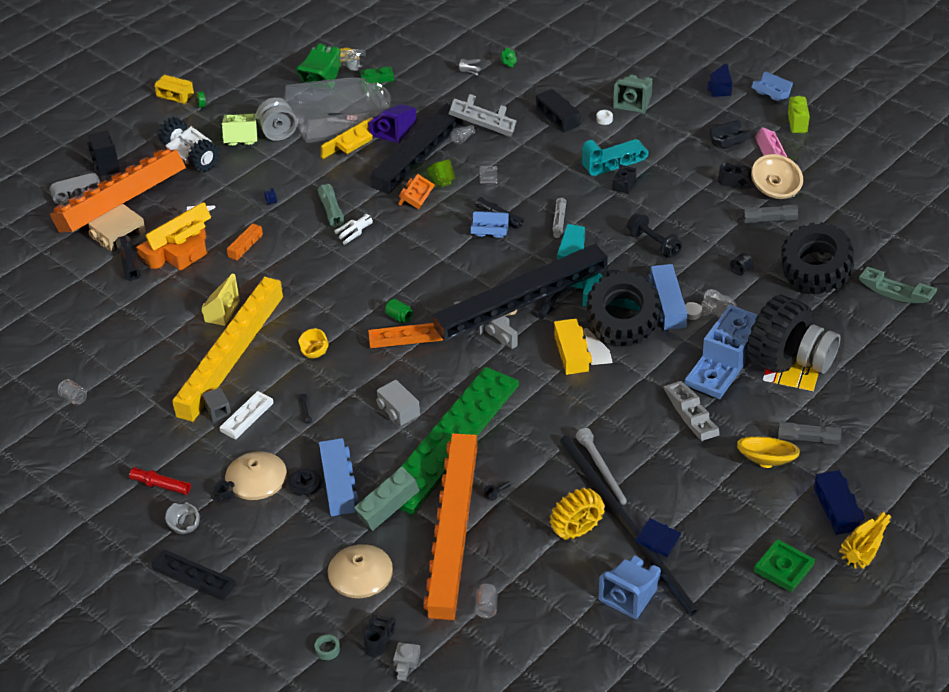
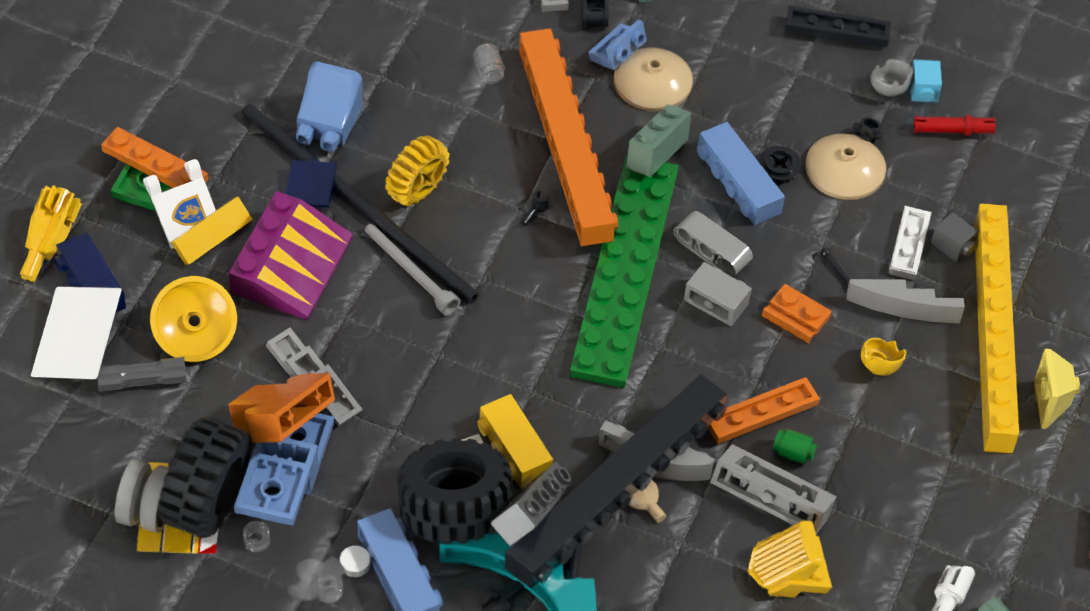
camera: 155 degrees right, 10 degrees up
(155, 512) = (926, 81): none -> medium azure brick
(282, 376) = (895, 299): none -> light grey slope
(350, 387) = (796, 313): none -> orange plate
(376, 590) = (618, 45): none -> medium blue bracket
(383, 435) = (713, 243): none -> light grey beam
(406, 278) = (772, 488): none -> light grey brick
(435, 254) = (790, 562): none -> yellow piece
(578, 285) = (532, 503): none -> dark grey brick
(689, 489) = (289, 257): none -> magenta slope
(724, 363) = (280, 409): none -> orange brick
(742, 517) = (211, 230): none -> yellow tile
(762, 527) = (183, 205): none -> white flag
(778, 569) = (147, 158): none -> orange plate
(853, 459) = (76, 332): none -> white sticker

